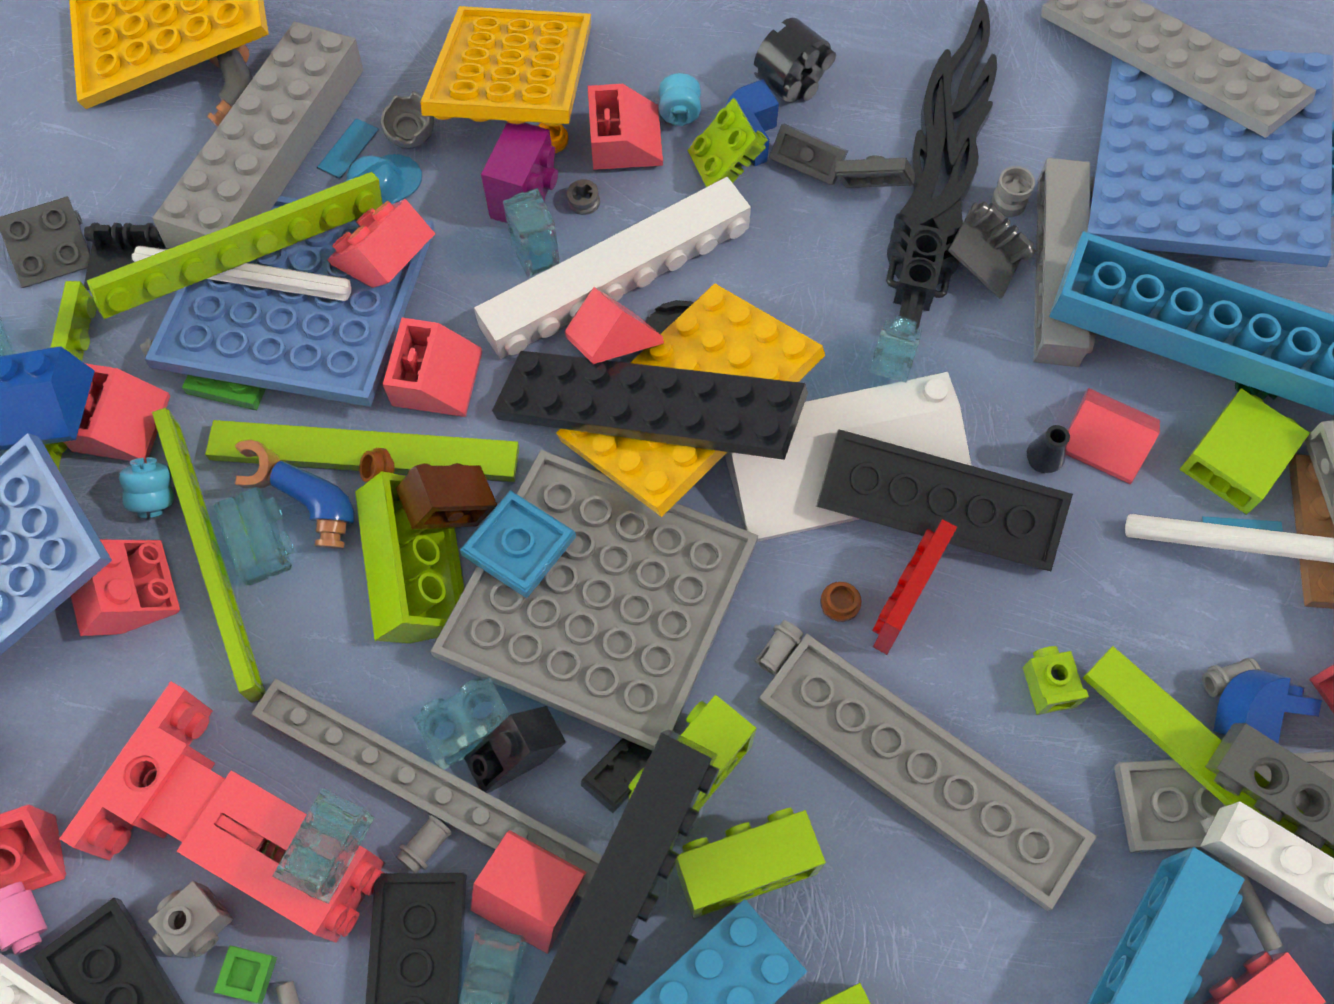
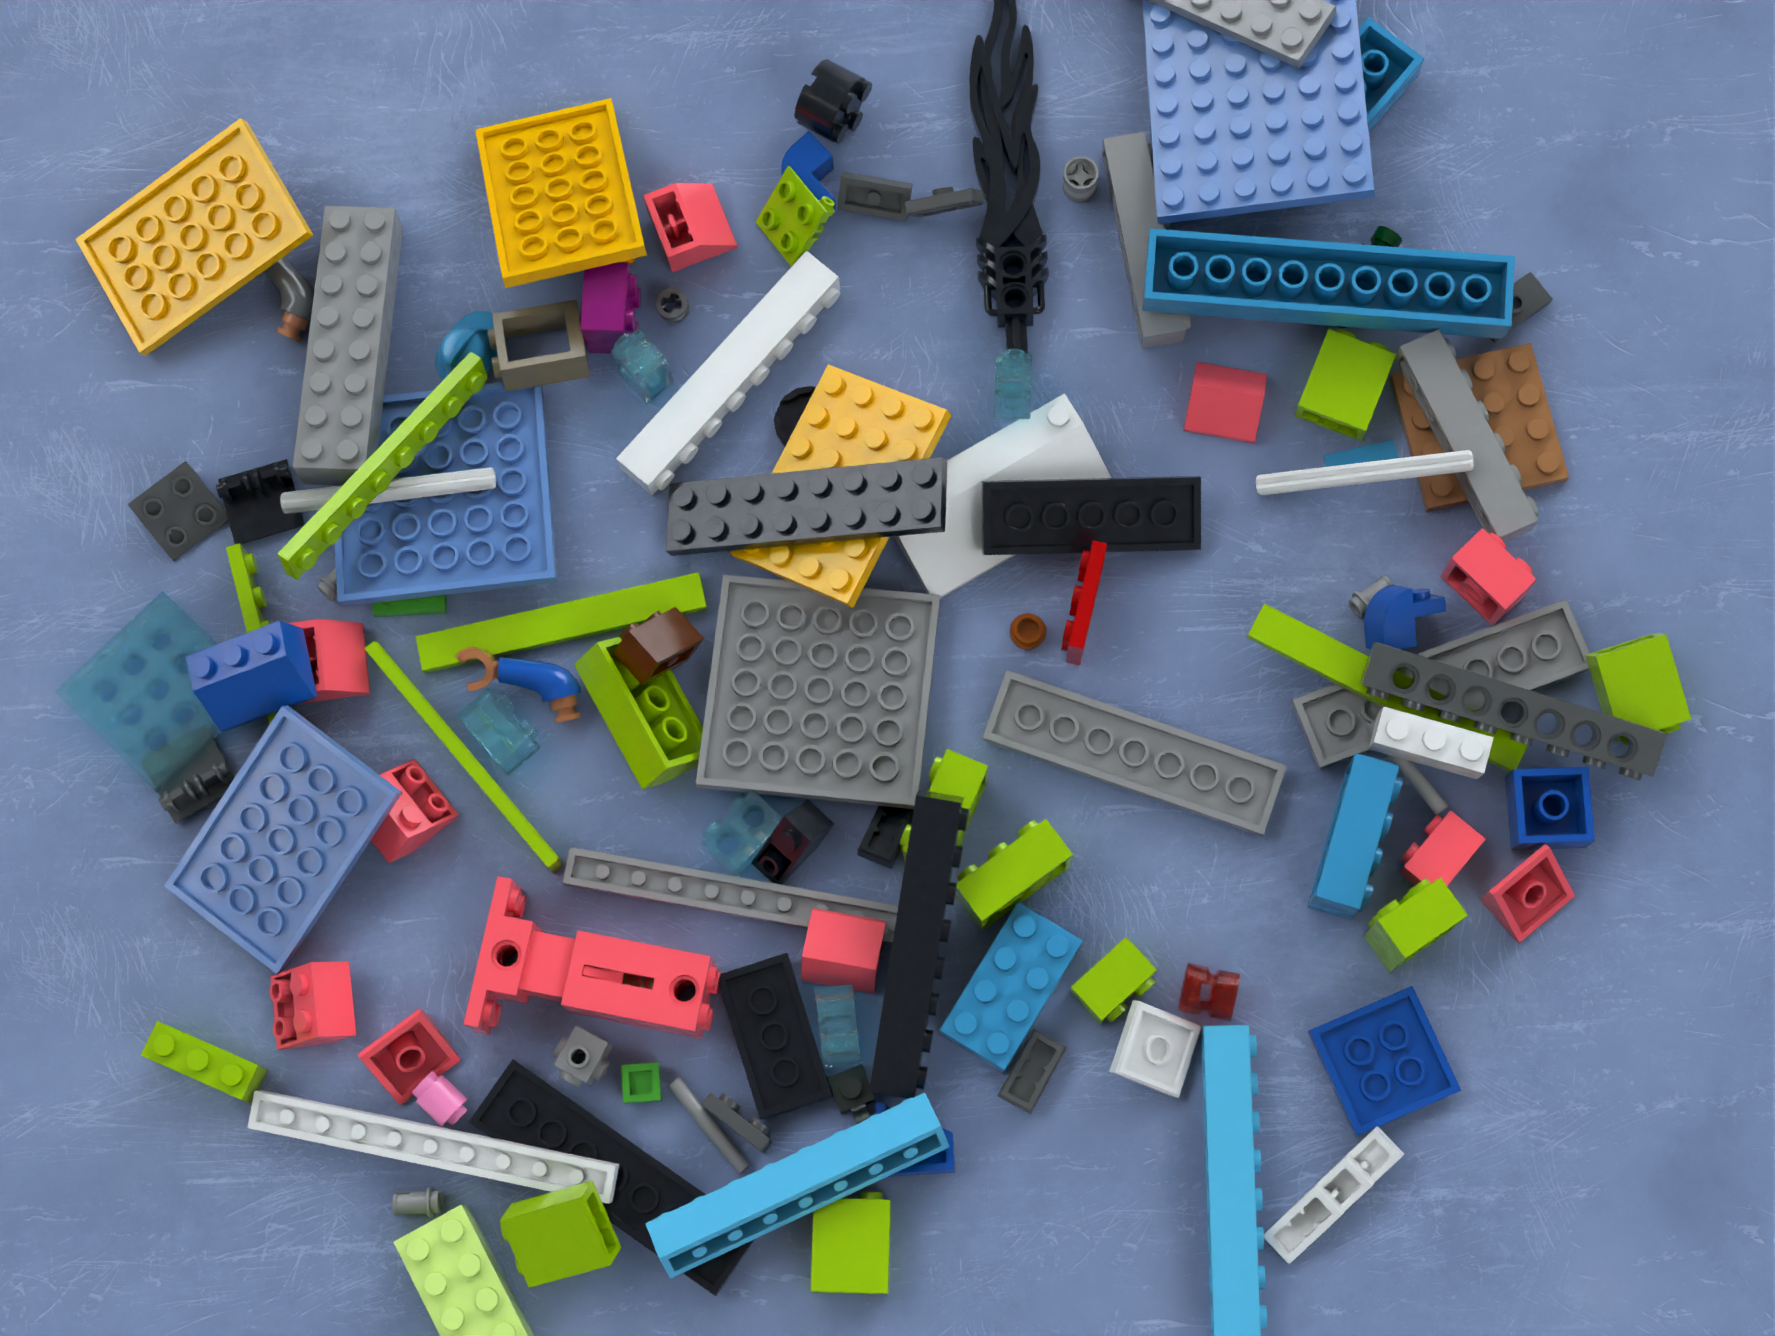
camera: 10 degrees left, 10 degrees up
(146, 487) = (387, 717): medium azure piece -> none
(324, 846) = (680, 962): clear light blue brick -> none
(348, 148) = (422, 319): dark azure sticker -> none
(374, 462) = (583, 635): dark orange plate -> none
(381, 243) = (507, 422): coral slope -> none
(404, 122) = (475, 277): light grey hair -> none
(423, 844) = (745, 941): light grey pin -> none
(431, 368) = (598, 528): coral slope -> none
(444, 170) = (541, 369): none -> dark tan window
(518, 544) = (735, 668): dark azure tile -> none
(609, 329) = (747, 442): coral slope -> none
(679, 99) = (732, 173): medium azure piece -> none
(779, 647) = (986, 688): light grey pin -> none
(989, 248) = (1072, 251): dark grey hinge -> none
(1047, 692) = (1224, 658): lime brick -> none
(1049, 450) = (1170, 444): black cone -> none

